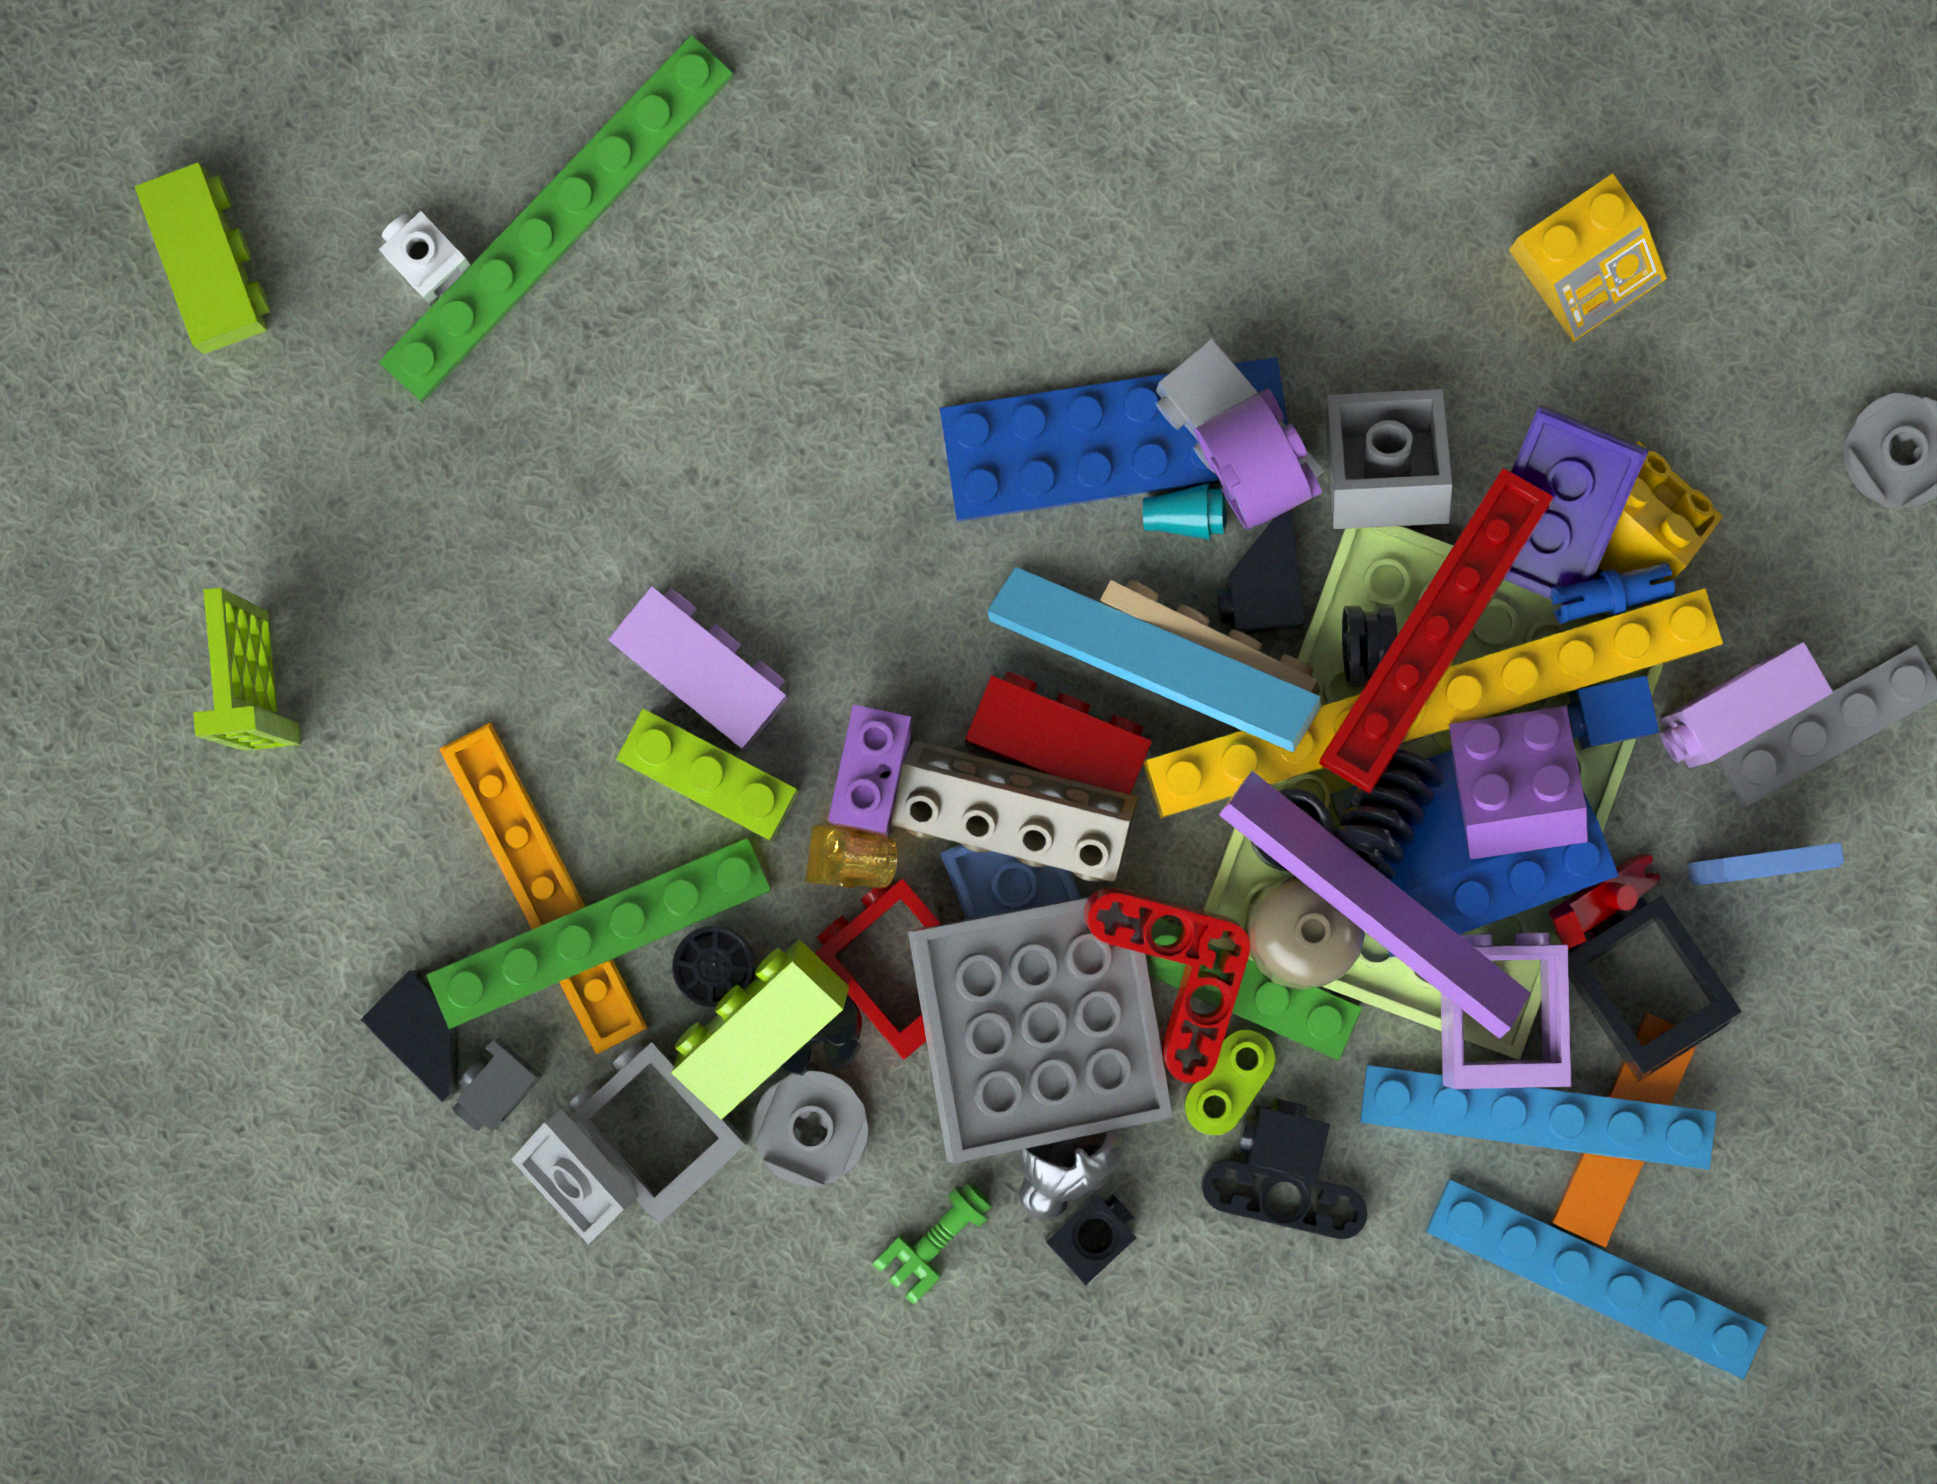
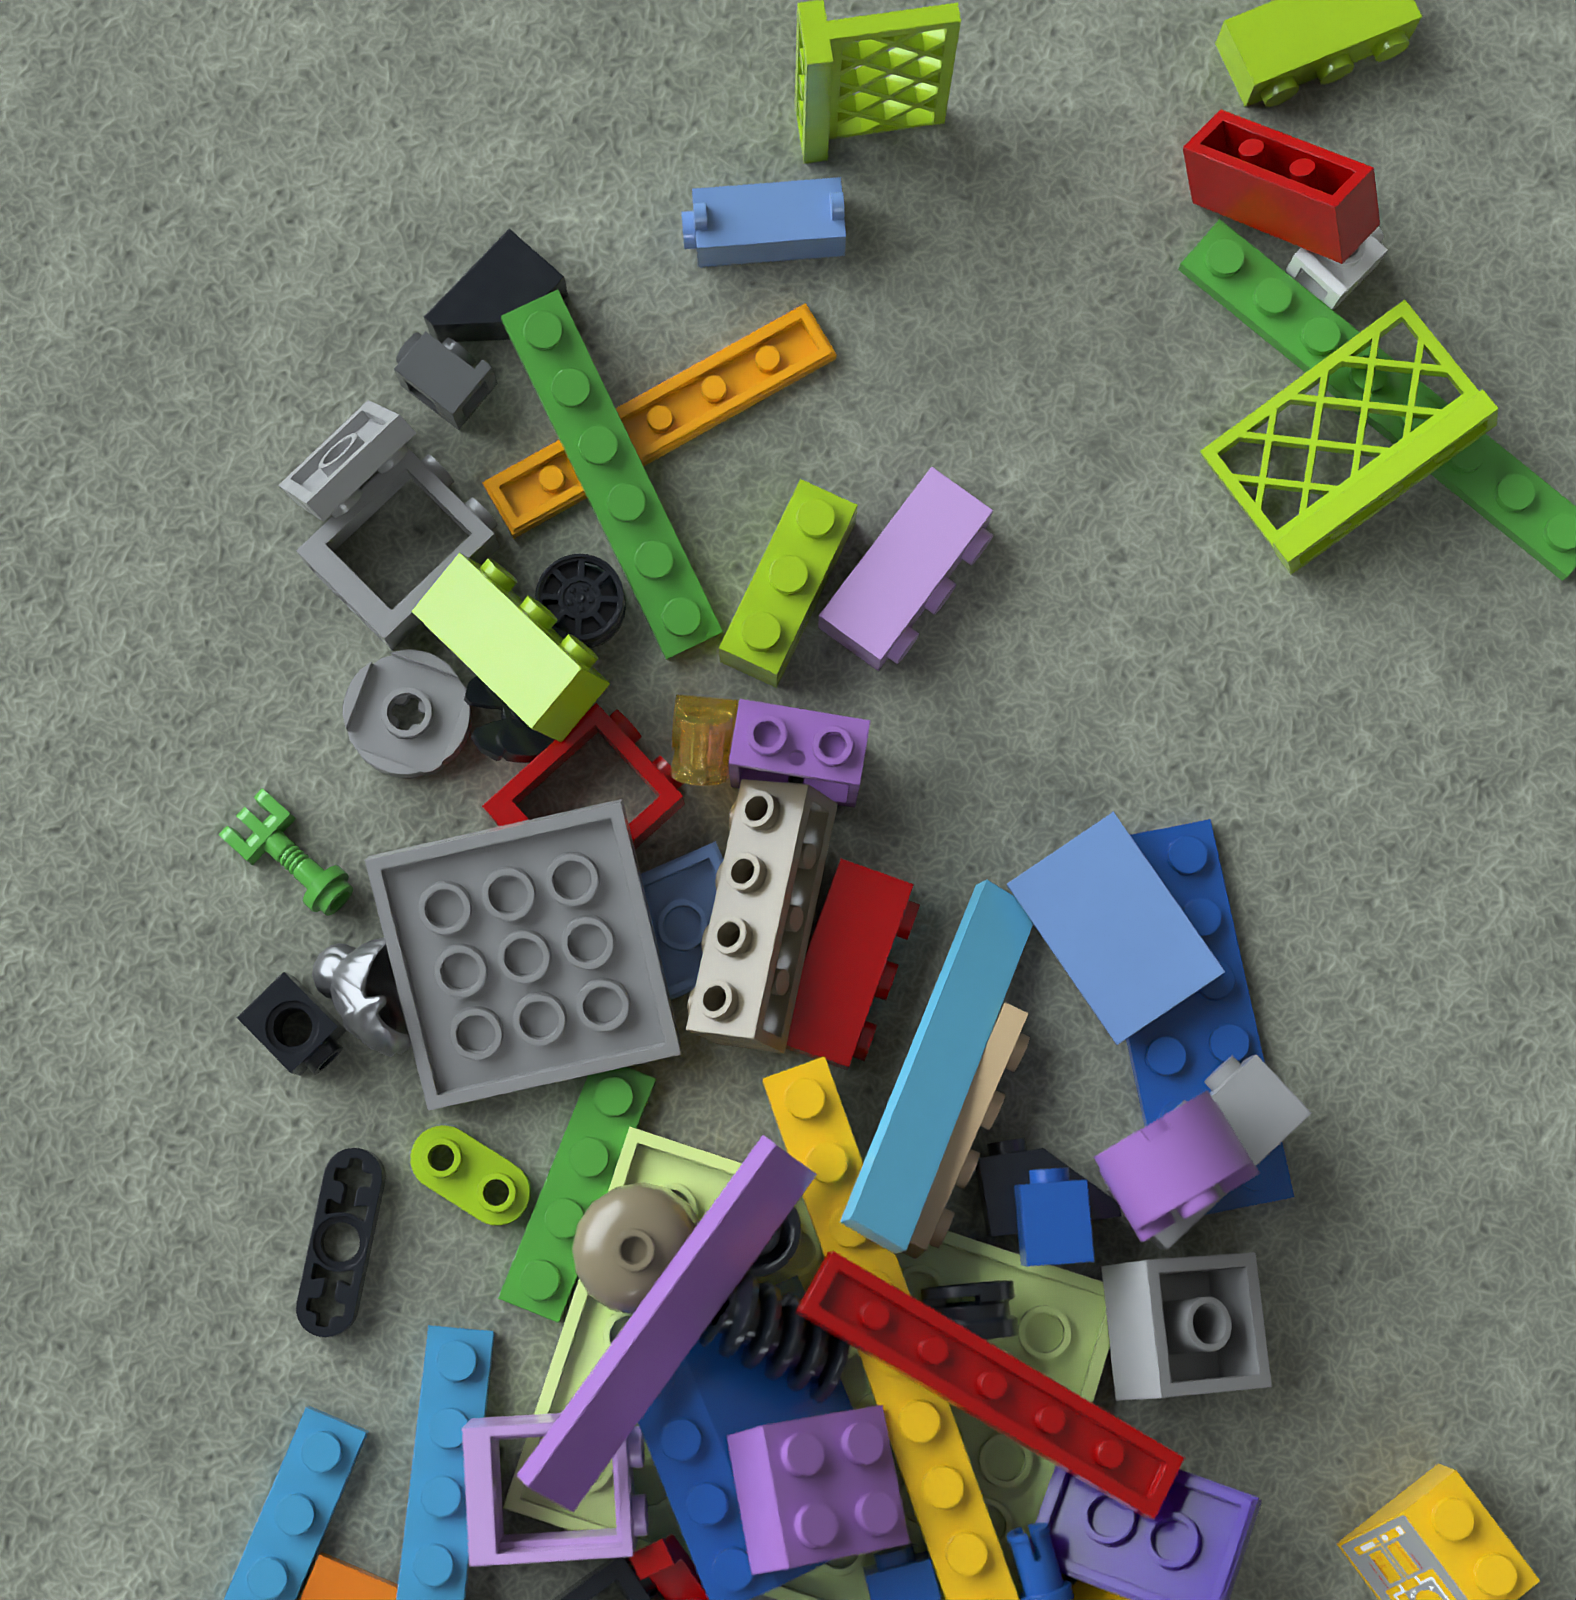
camera: 85 degrees right, 5 degrees down
(360, 304) = (1282, 185): none -> red brick
(361, 781) = (766, 222): none -> medium blue brick
(636, 231) = (1383, 478): none -> lime fence
(1037, 498) = (1115, 928): none -> medium blue tile
(1187, 512) = (1110, 1101): teal cone -> none
(1189, 949) = (613, 1117): red beam -> none
(1284, 1139) = (406, 1238): black brick -> none
(1294, 568) = (1053, 1219): none -> blue brick

